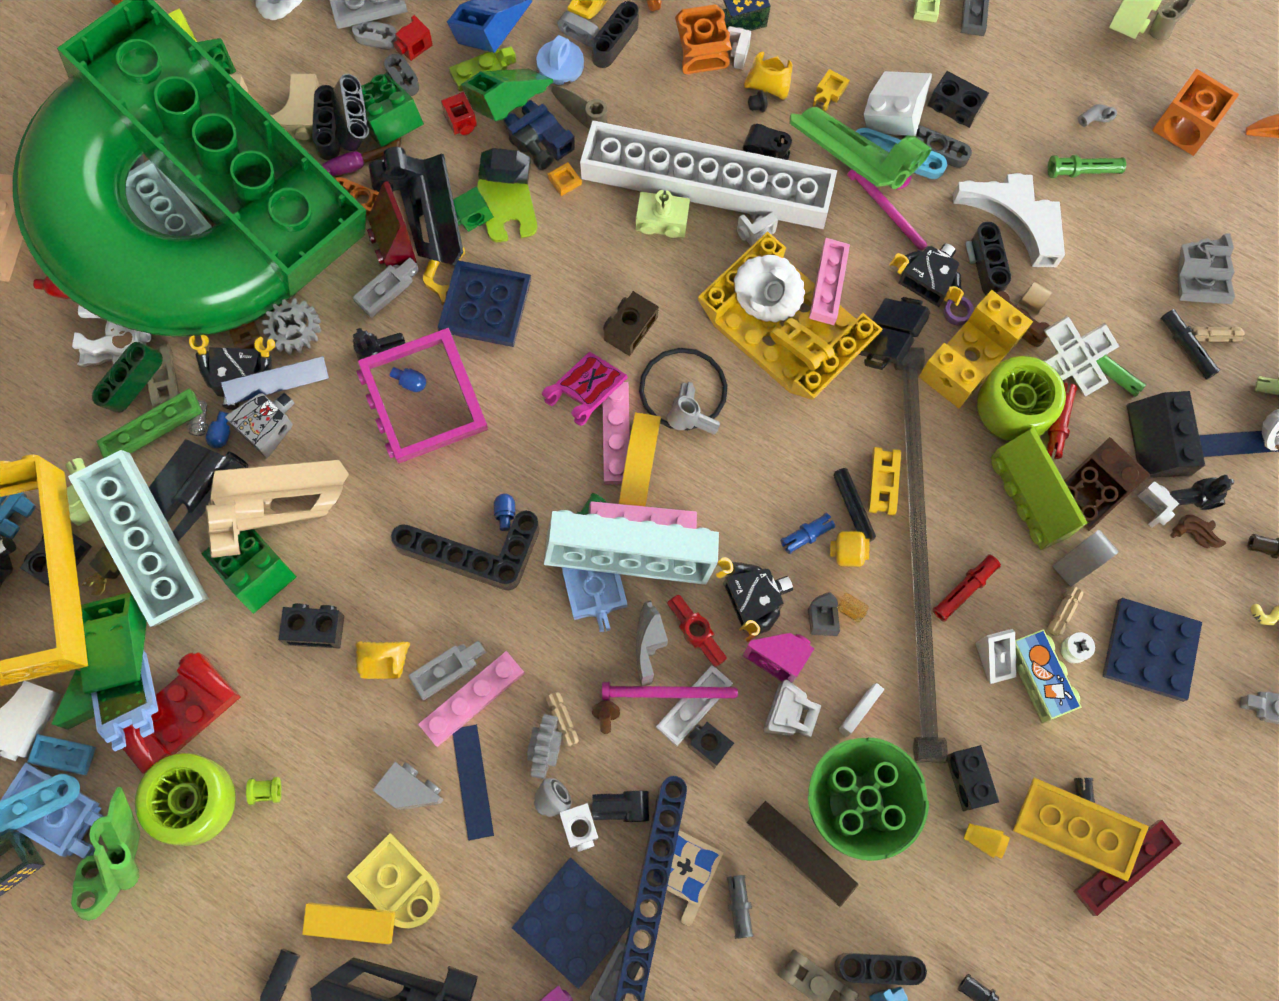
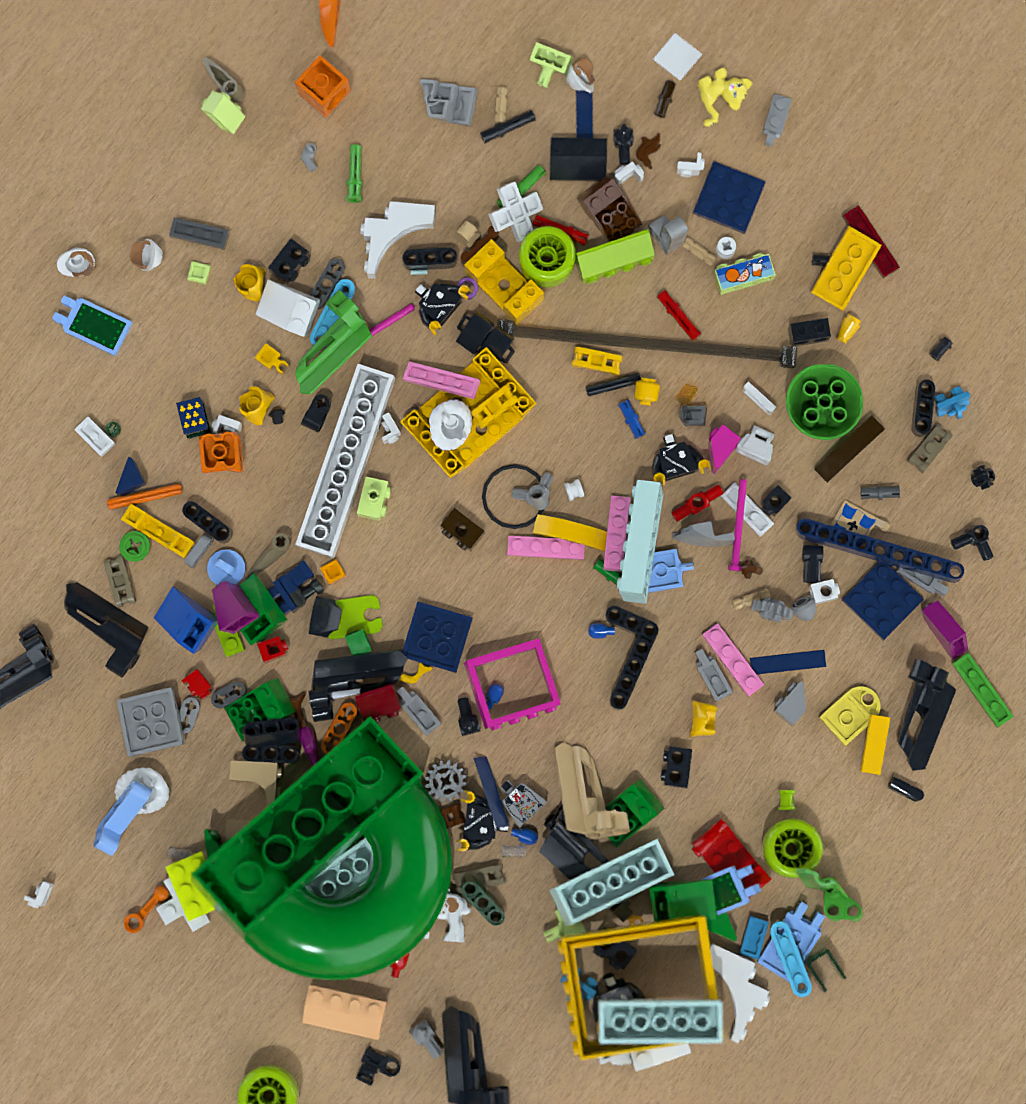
camera: 80 degrees left, 10 degrees up
(151, 424) = (519, 885): bright green tile -> none
(204, 30) = (178, 854): none -> clear pin
(507, 59) = (232, 607): none -> magenta slope
(587, 384) = (507, 564): dark pink flag -> none
(699, 461) = (574, 490): none -> white wheel
(926, 58) = (250, 281): none -> yellow hair
(998, 655) = (728, 302): white slope -> none
(1184, 589) = (687, 169): none -> white bracket

